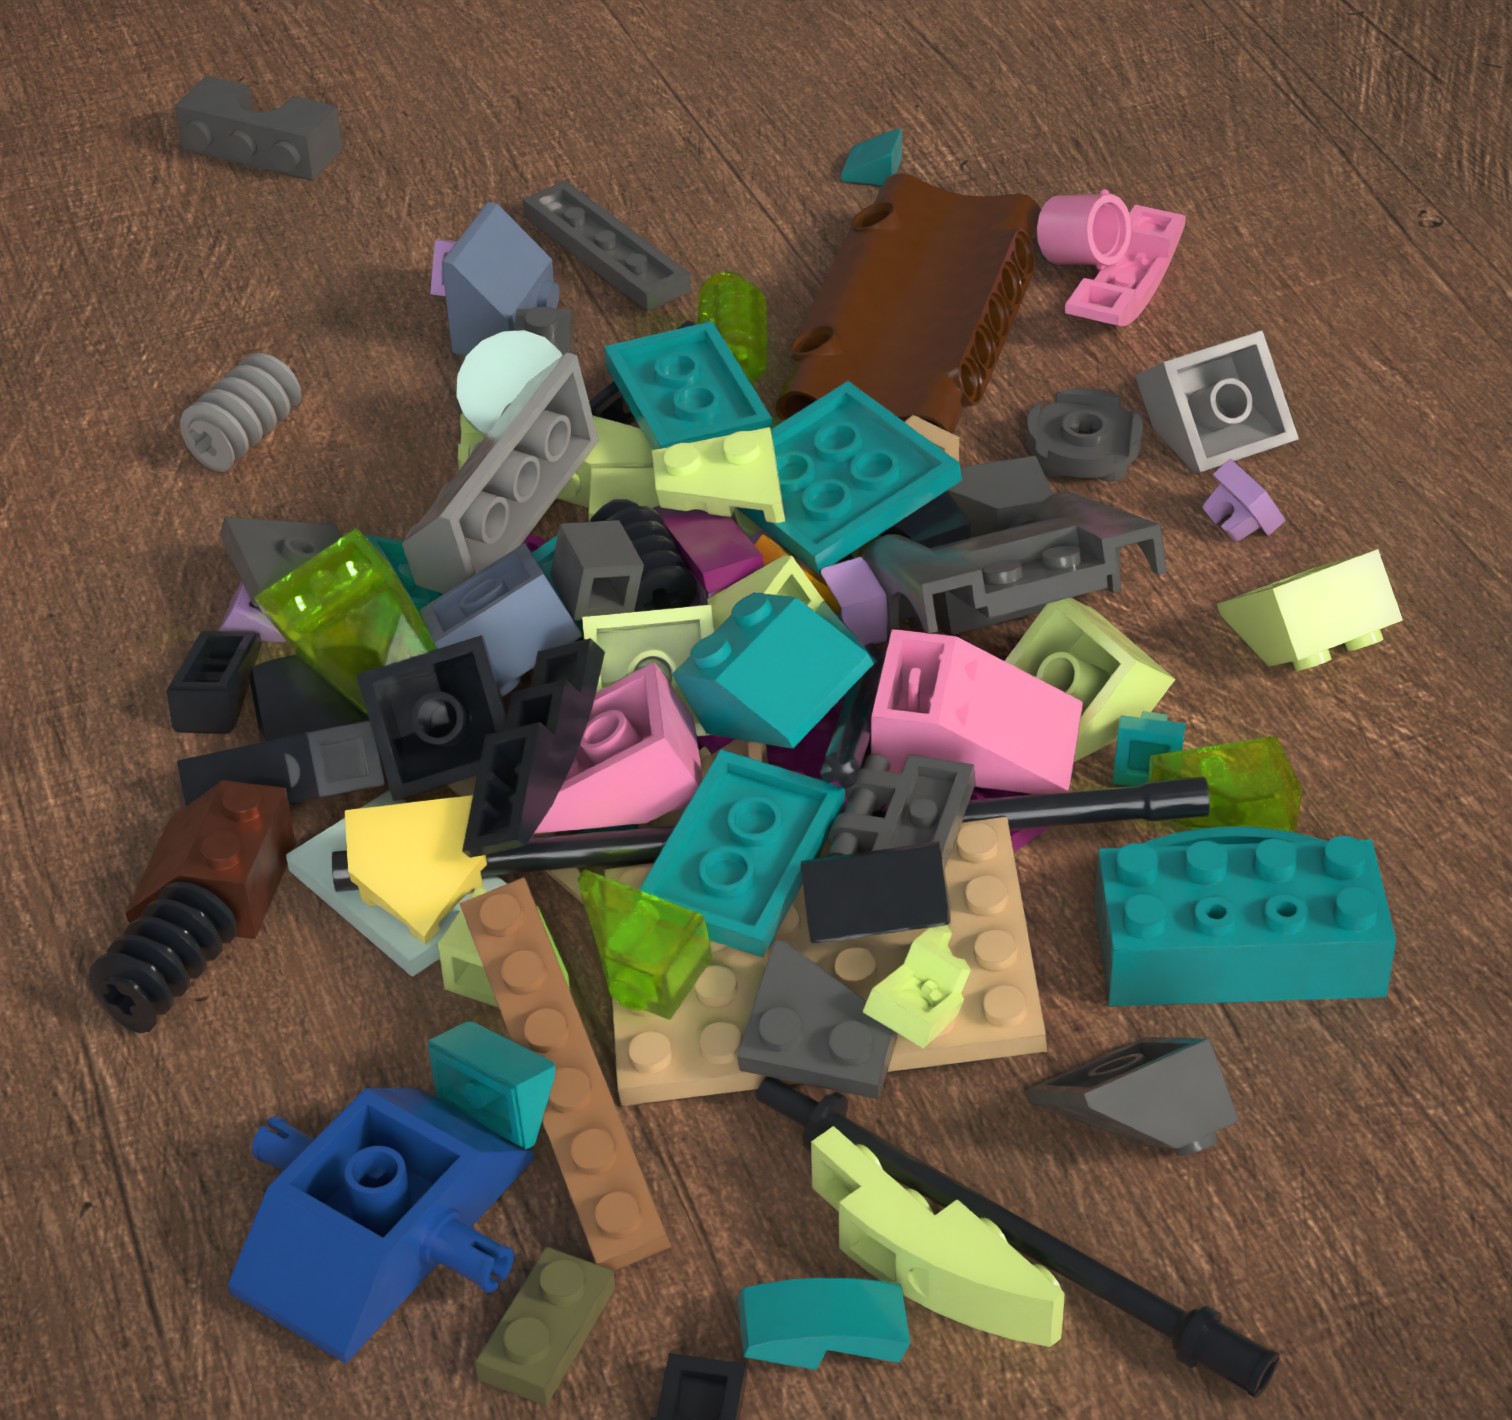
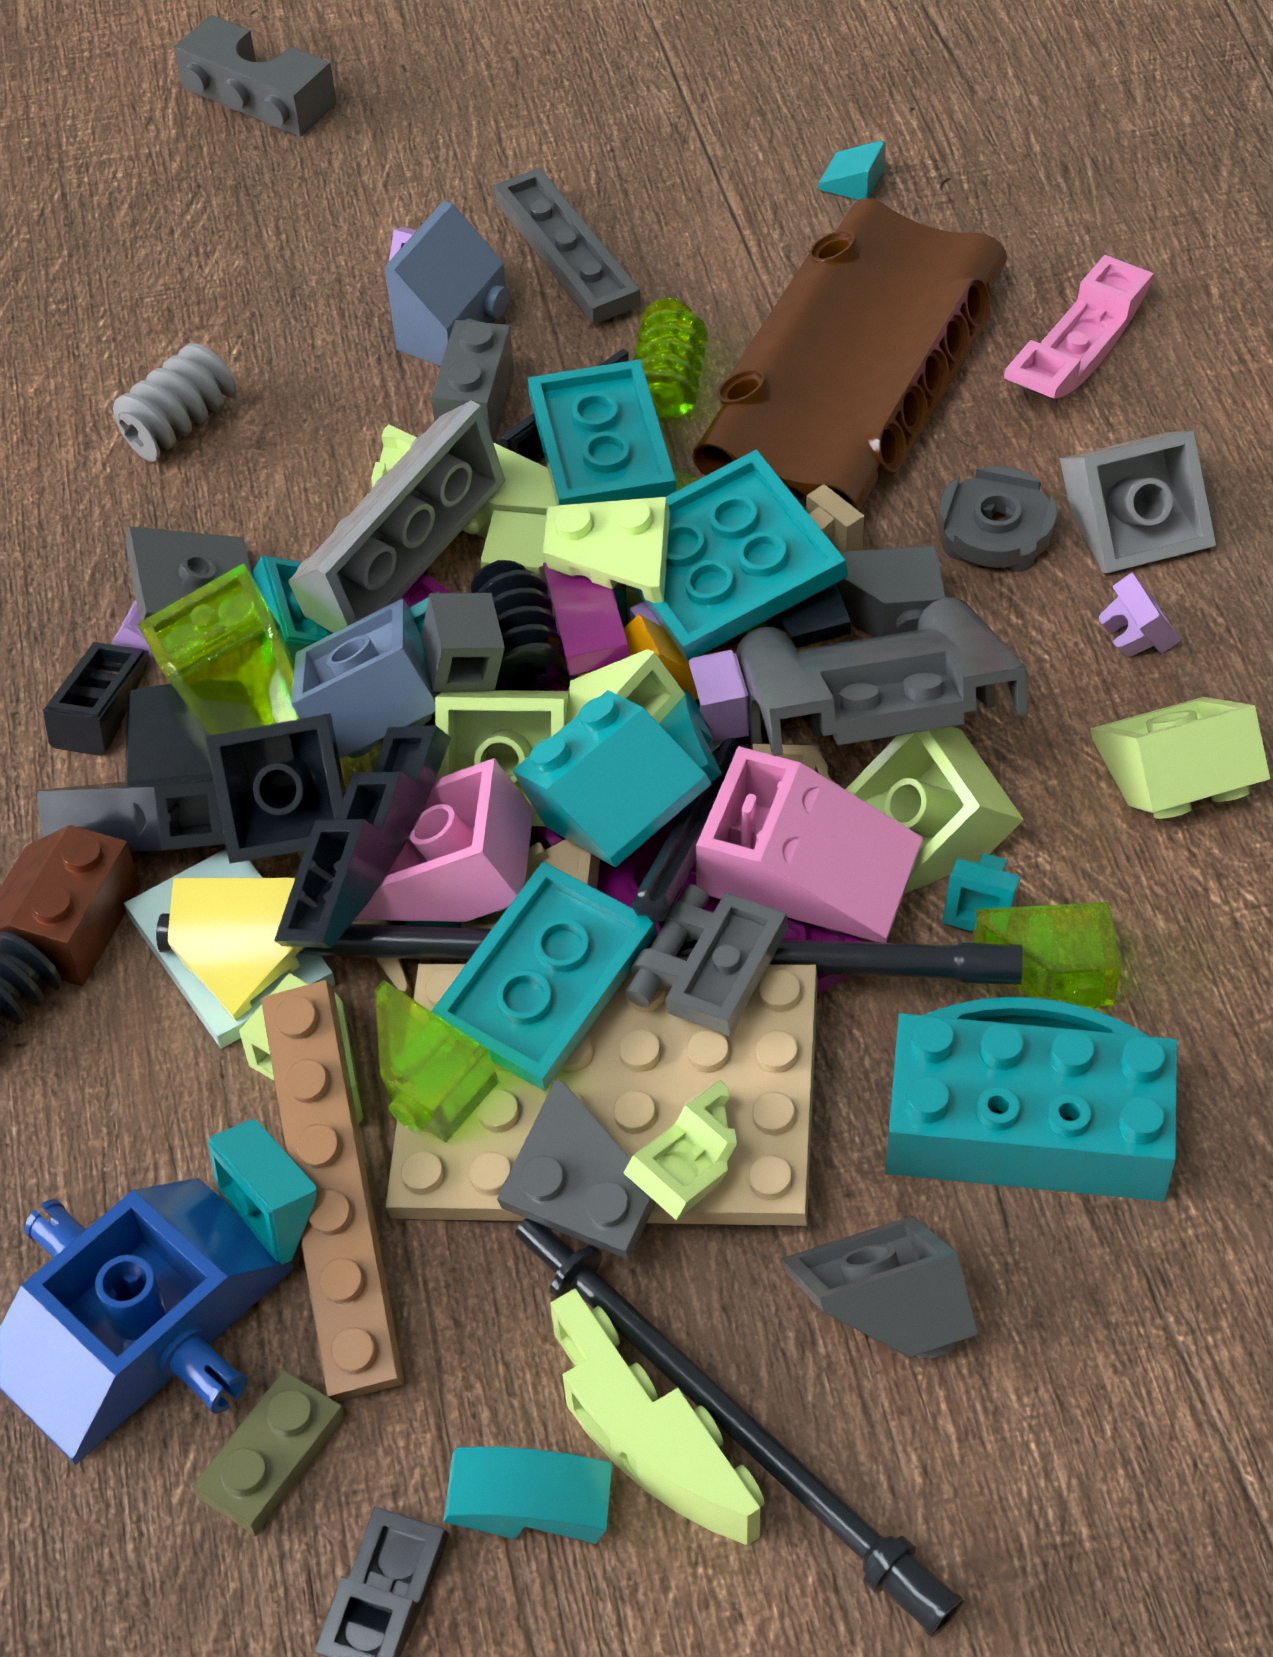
camera: 10 degrees right, 10 degrees up
(498, 372) = (423, 392): light aqua tile -> none
(875, 892) = (662, 1044): black slope -> none
(1084, 229) = (1044, 281): bright pink piece -> none

